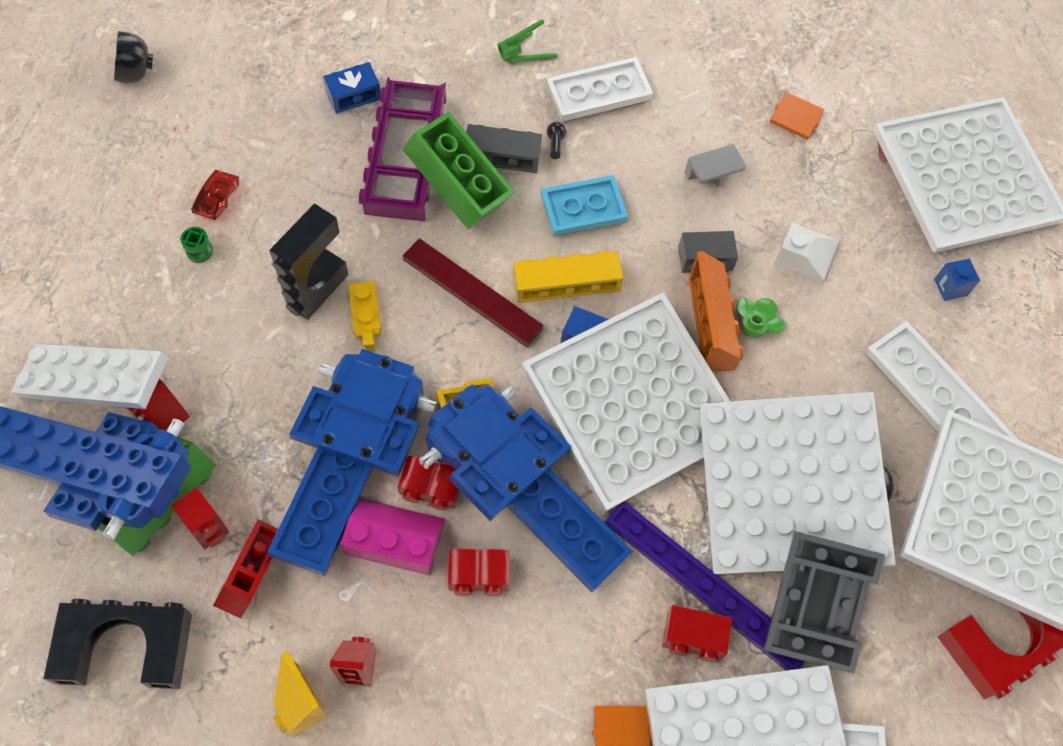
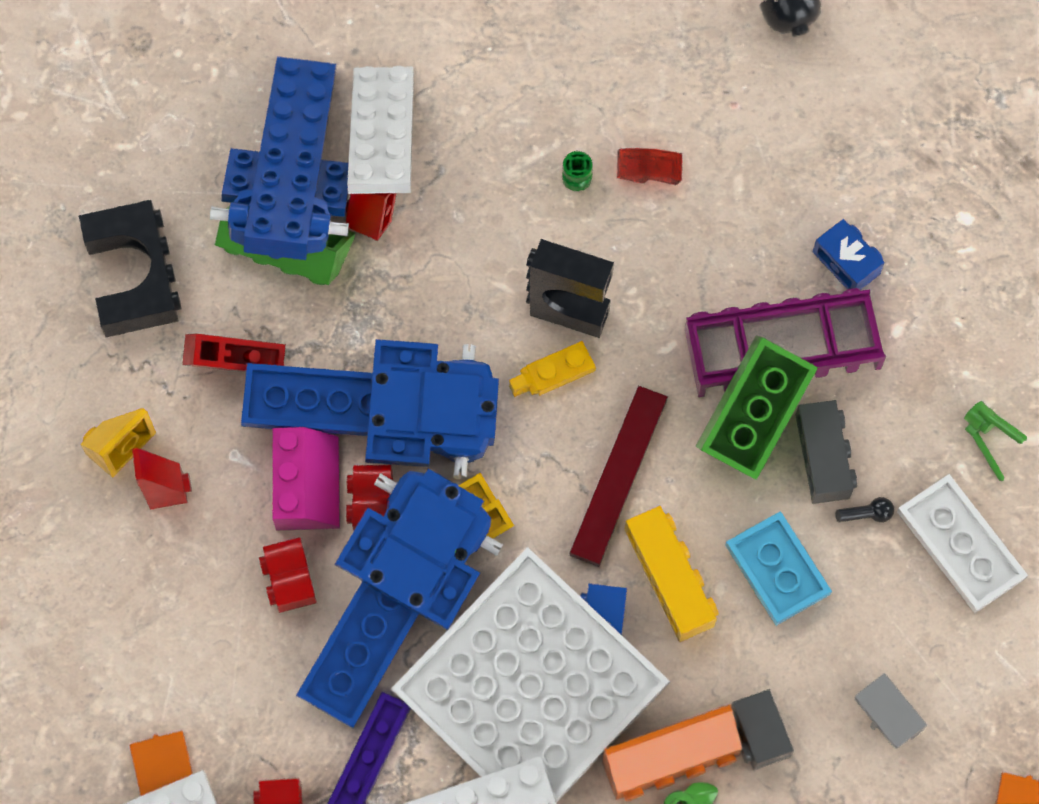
camera: 80 degrees right, 5 degrees up
(200, 519) = (264, 290): red brick -> none

